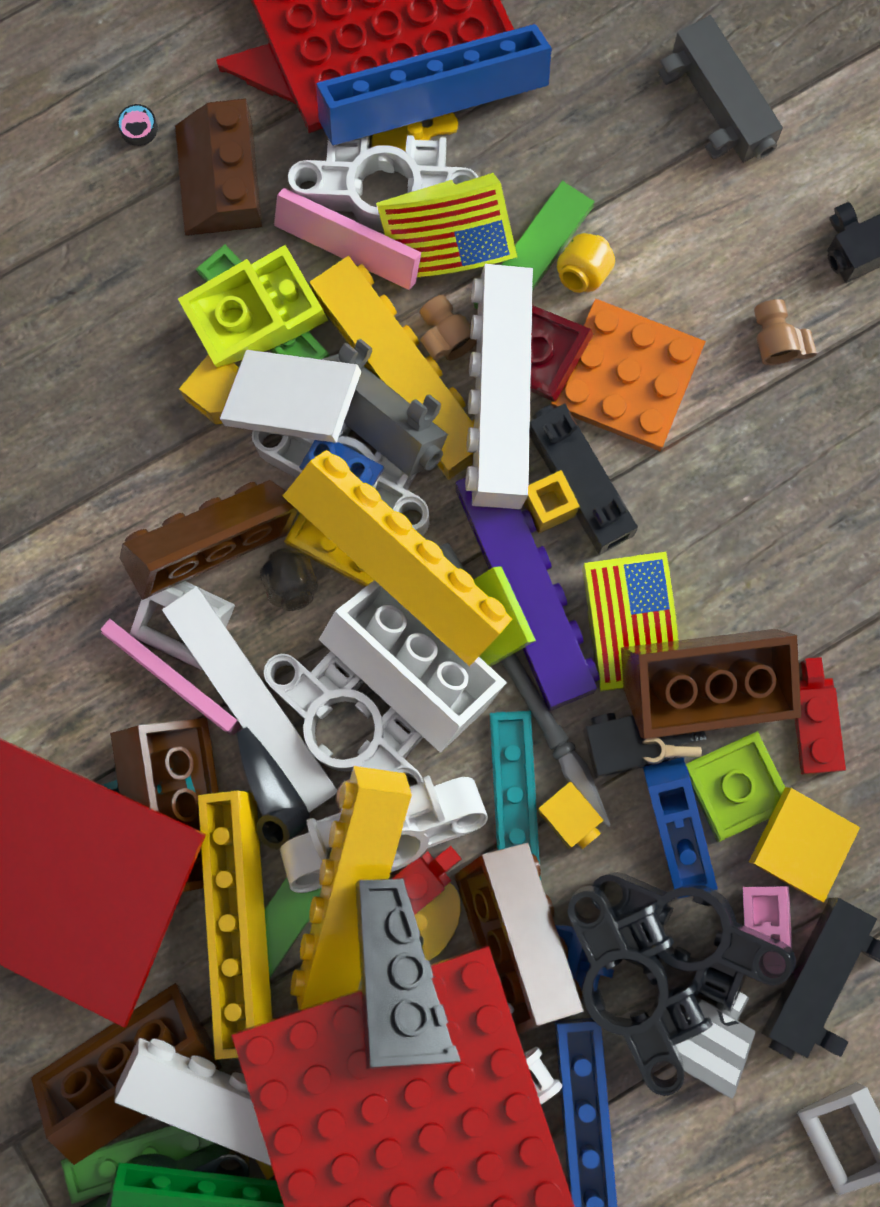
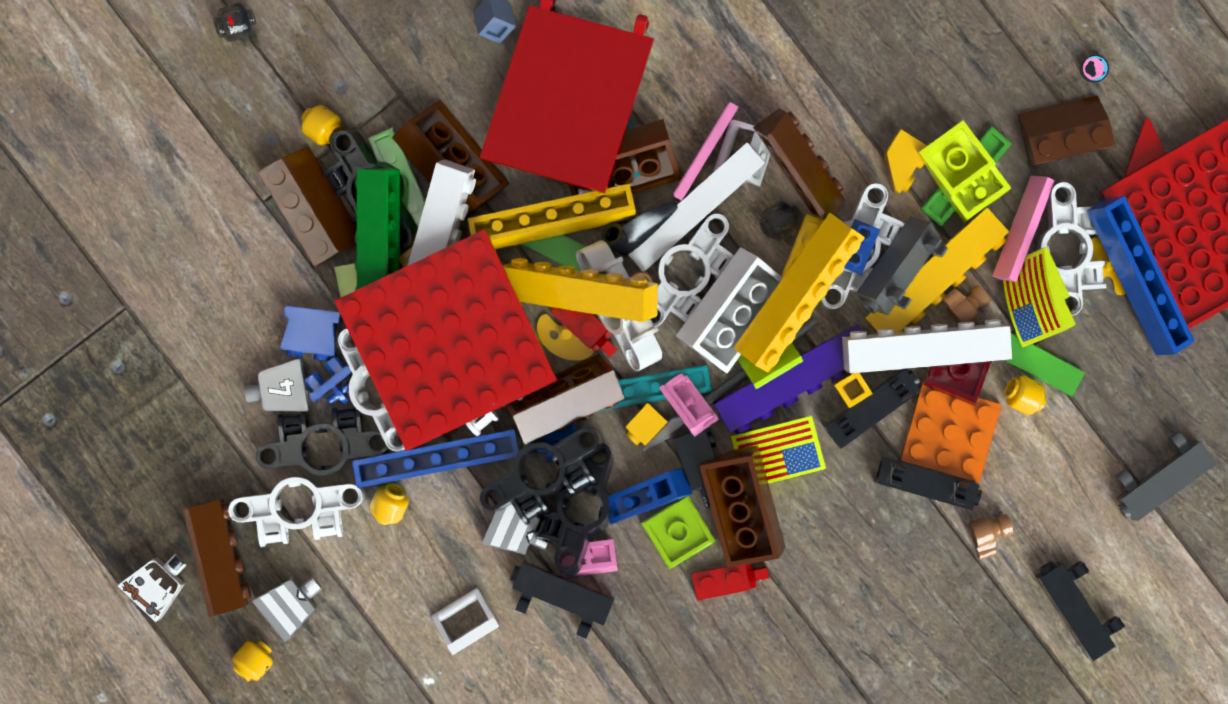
camera: 75 degrees right, 10 degrees up
(291, 395) = (901, 207): white tile -> none
(398, 995) = (521, 328): wing -> none
(547, 745) = (689, 404): none -> bright pink hinge
(671, 751) = (694, 485): tan hand -> none
(700, 412) = (928, 483): none -> black brick
(804, 844) = (645, 577): yellow tile -> none

